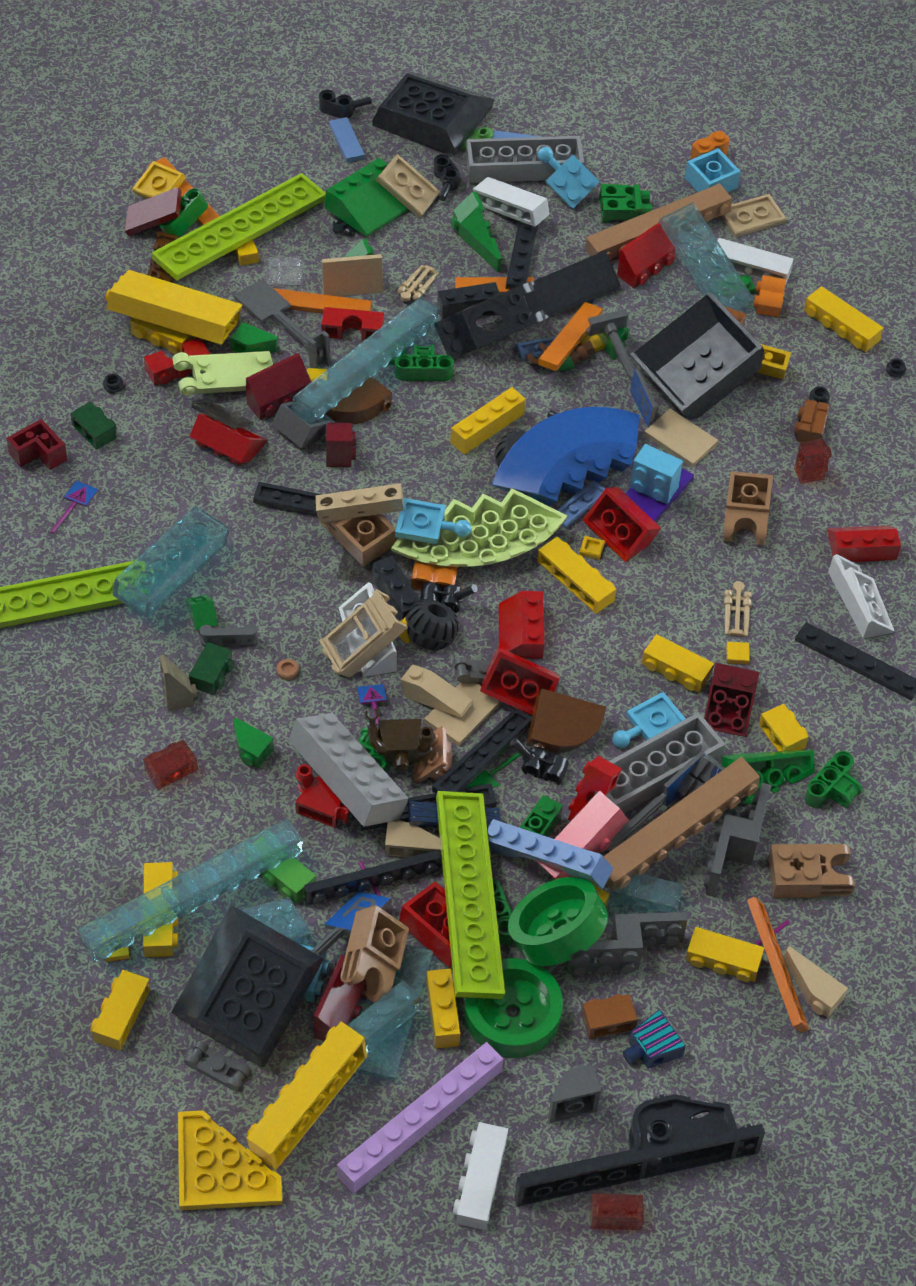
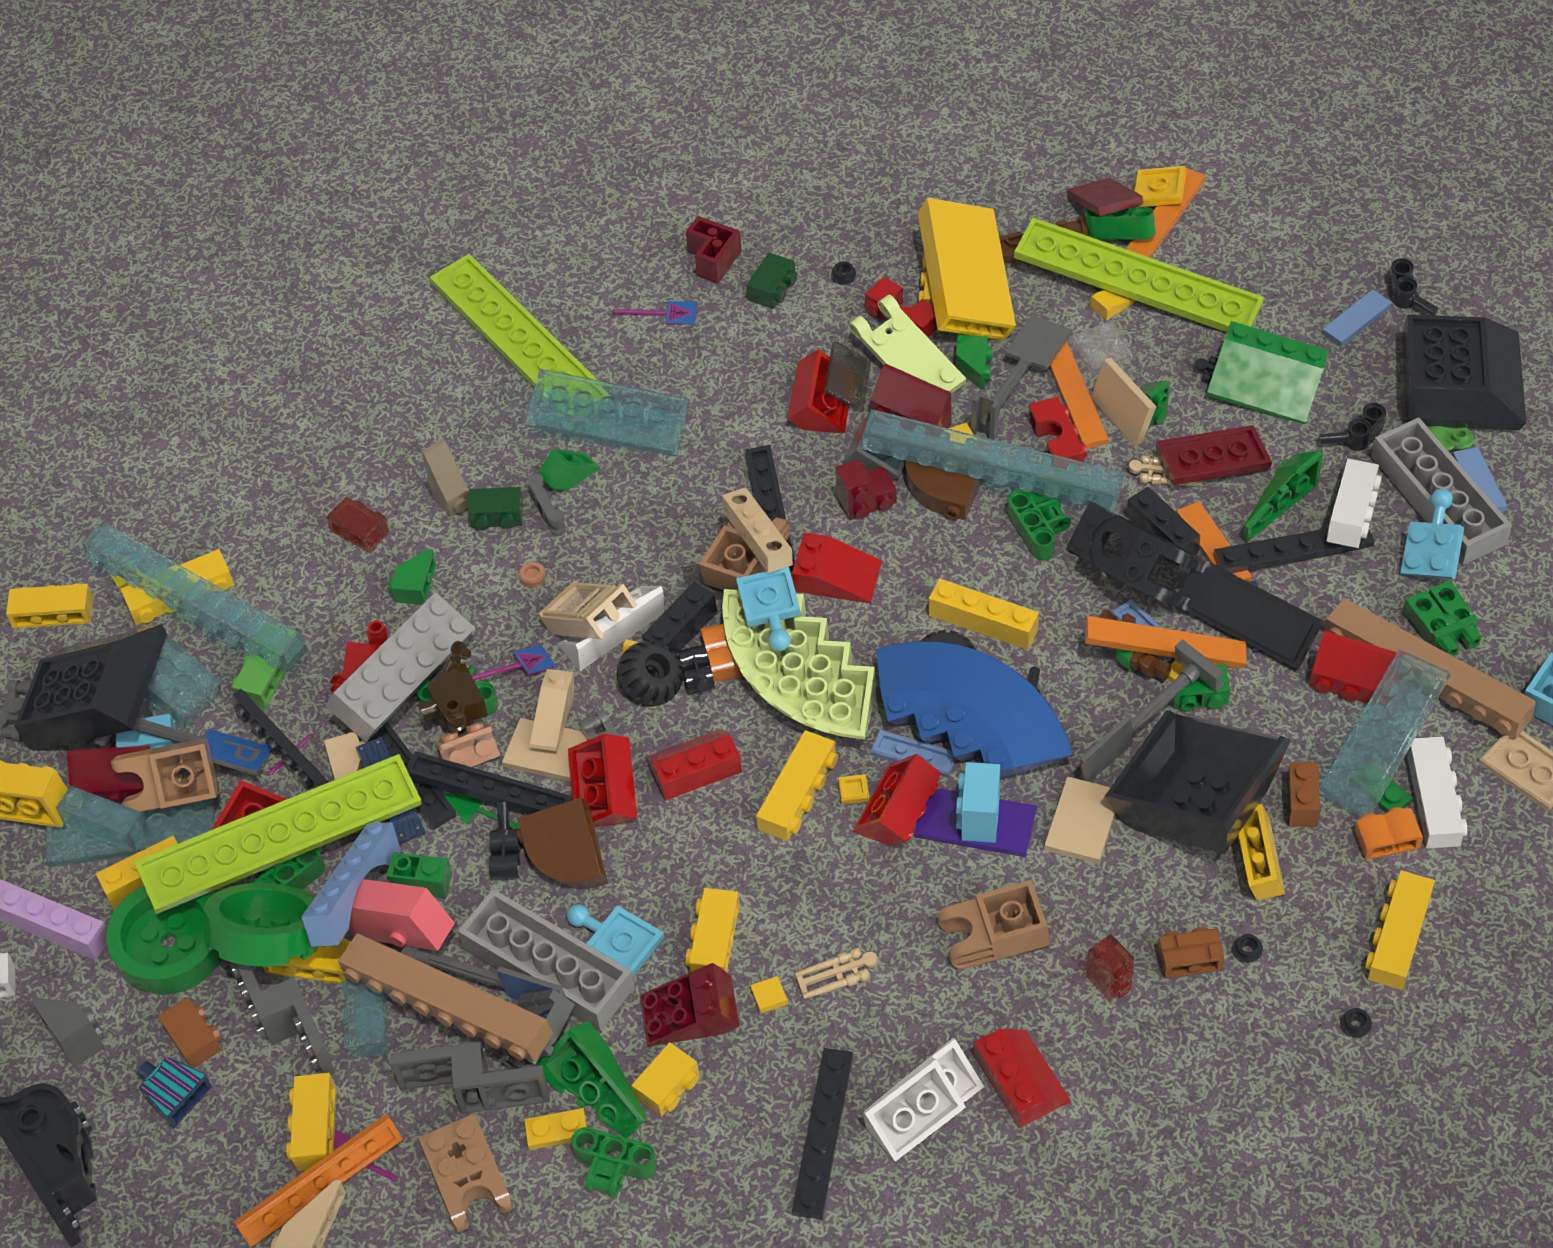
camera: 75 degrees right, 0 degrees up
(408, 186) = (1309, 396): tan tile -> none
(412, 482) = (834, 569): none -> red slope
(423, 253) = (1213, 455): none -> dark red plate
(599, 776) = (466, 898): red arch -> none
(790, 810) = (553, 1128): none -> yellow plate

